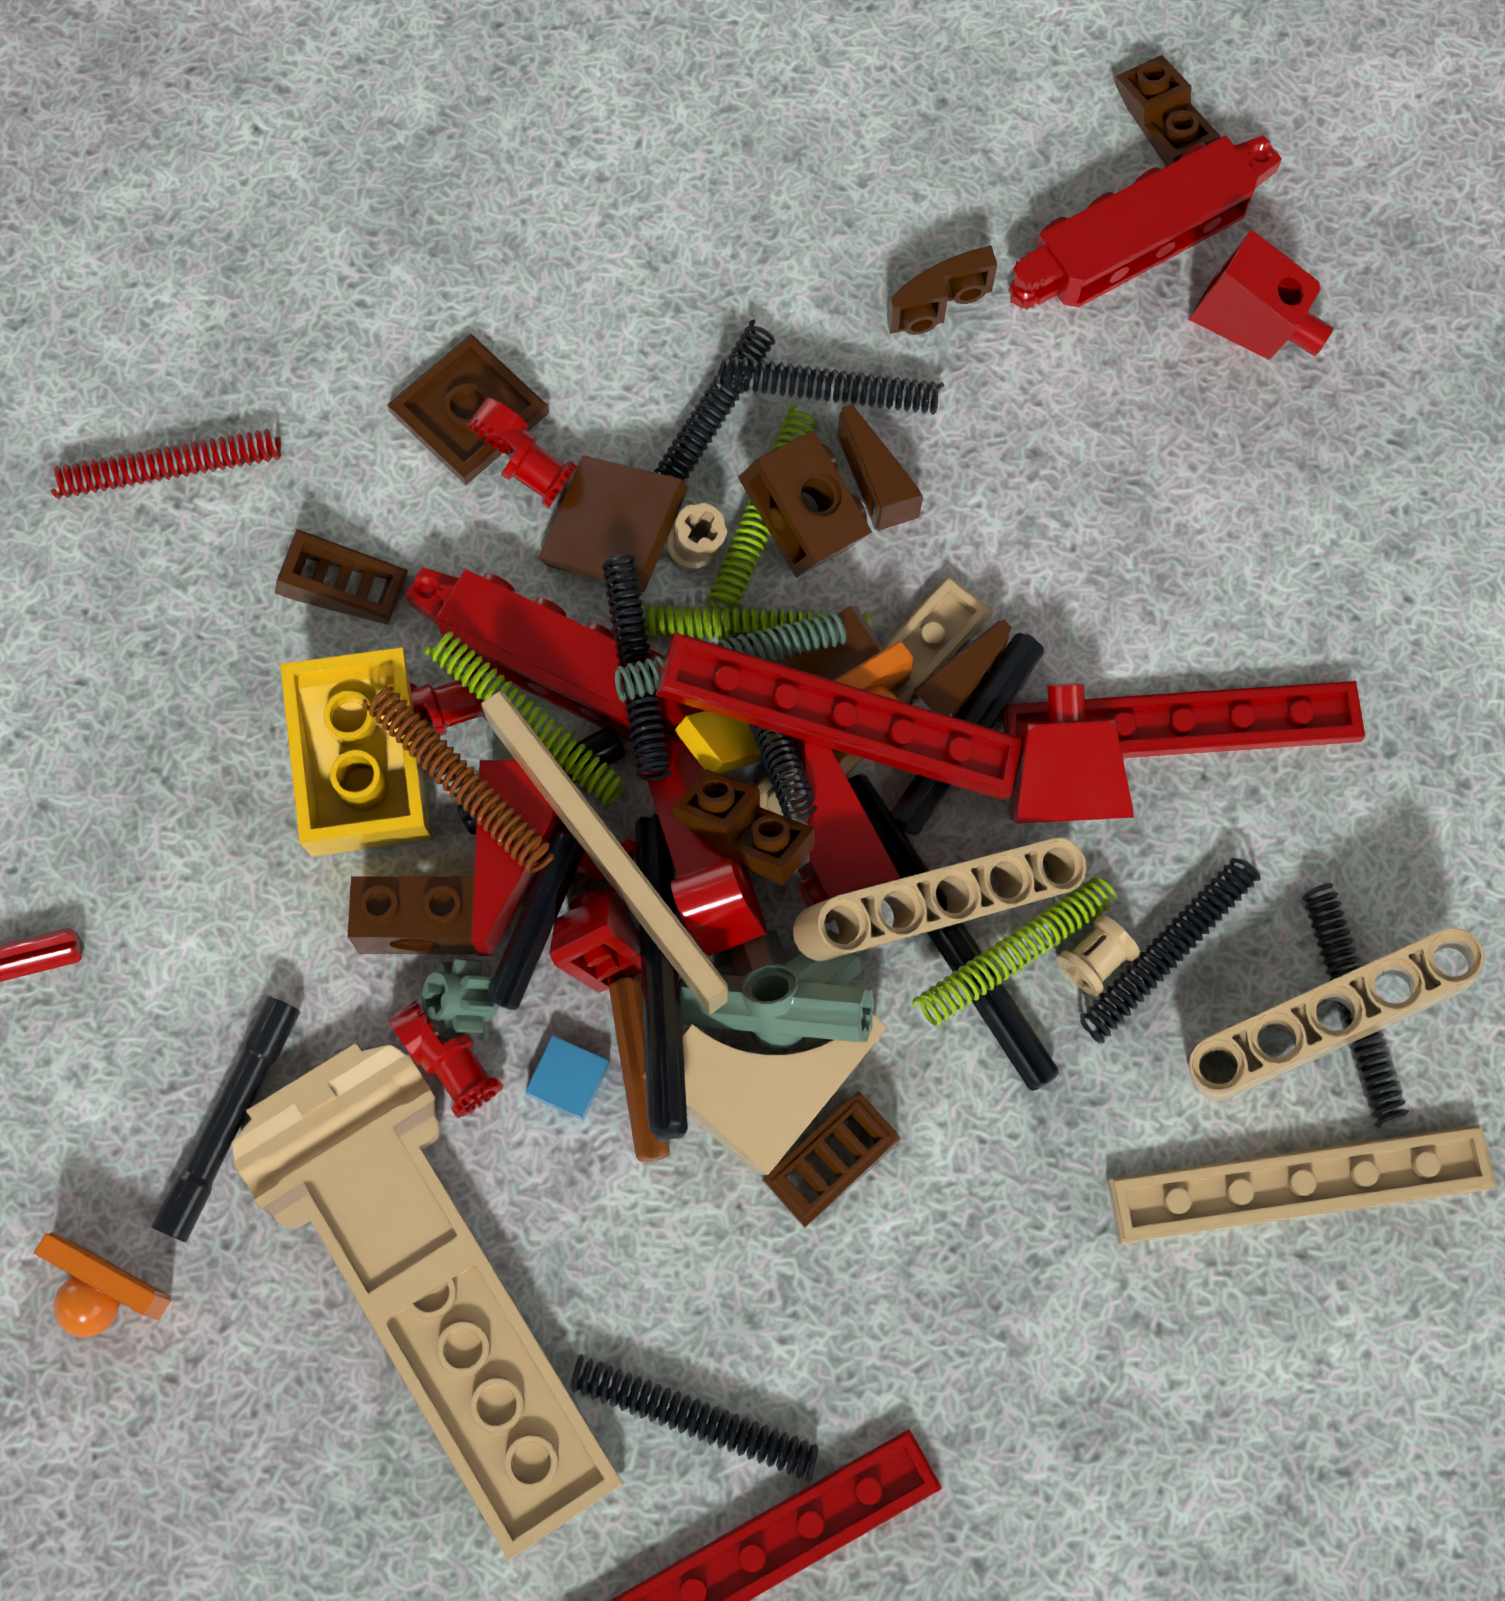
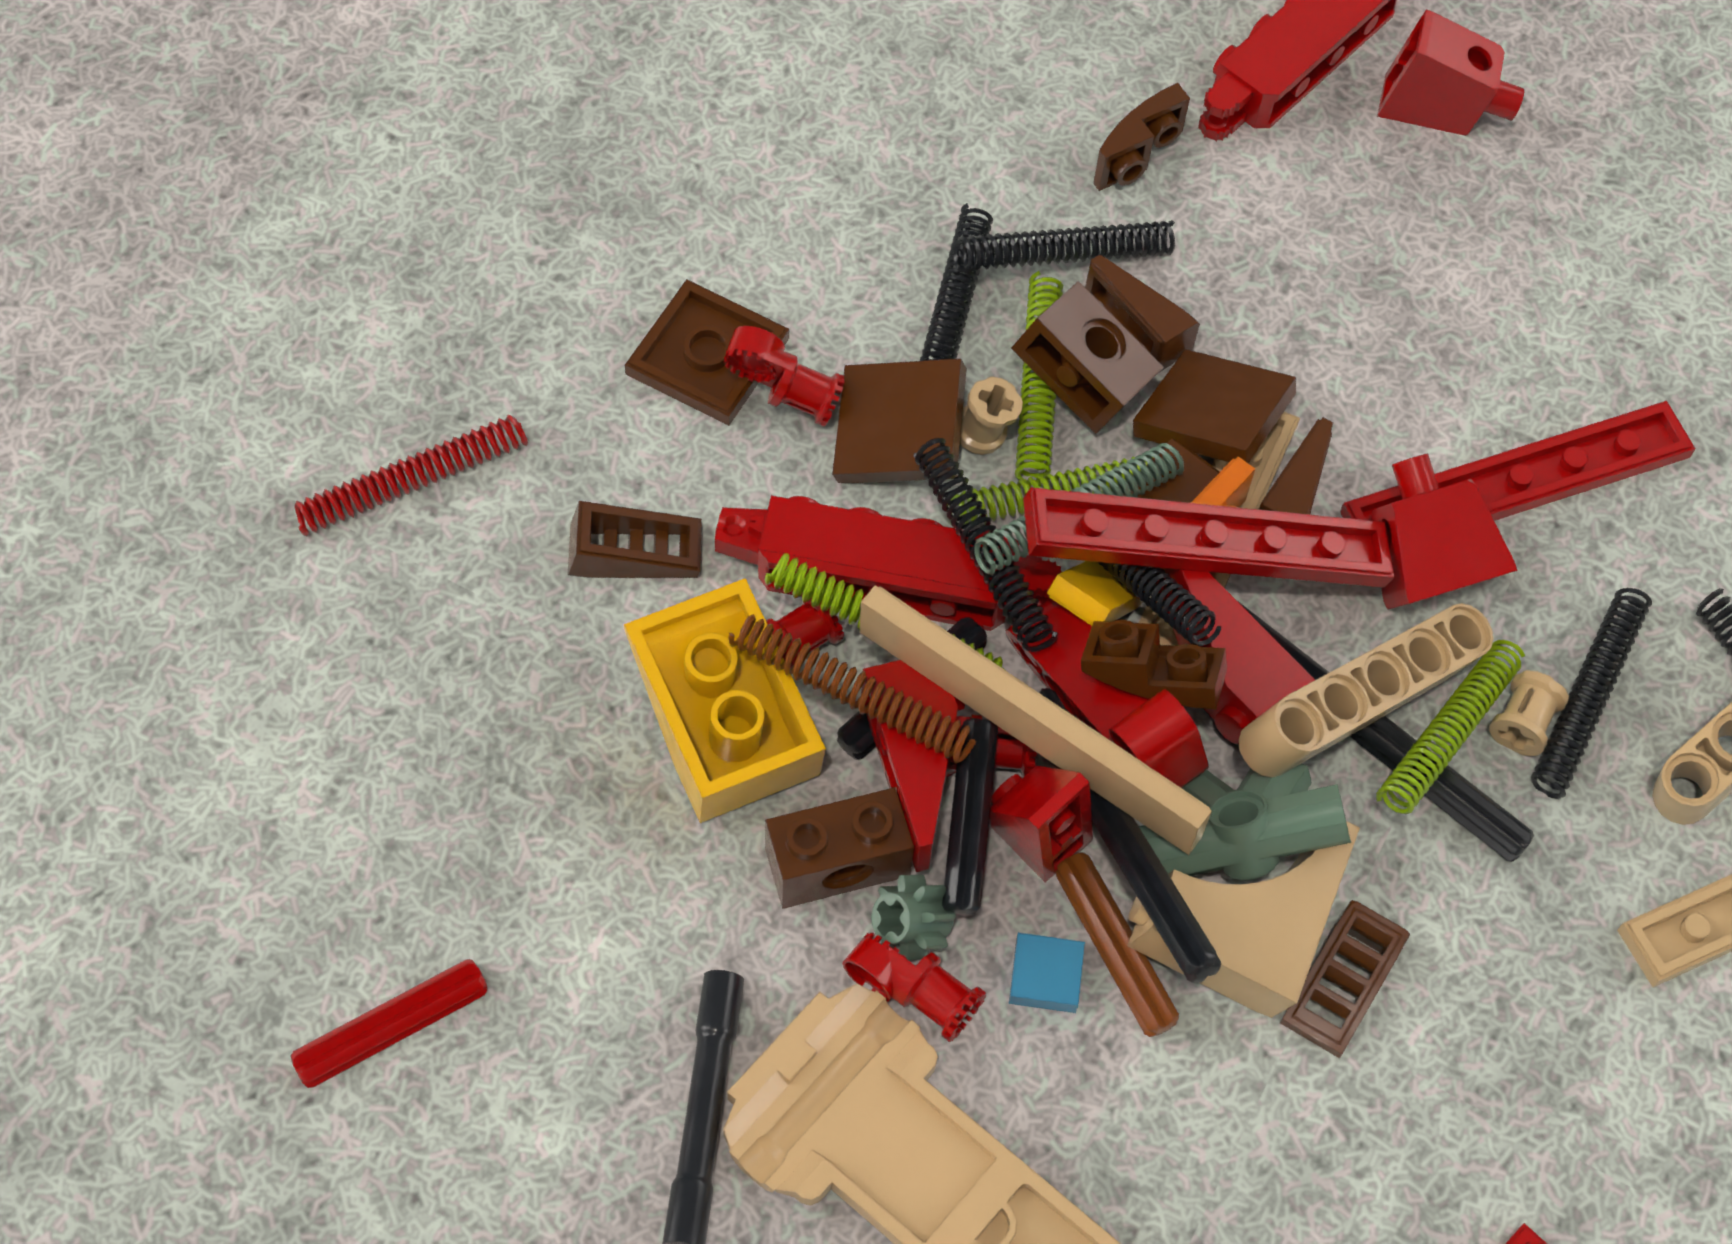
camera: 20 degrees left, 10 degrees down
(911, 582) = (1215, 406): none -> reddish brown tile
(983, 709) = (1332, 499): black axle -> none

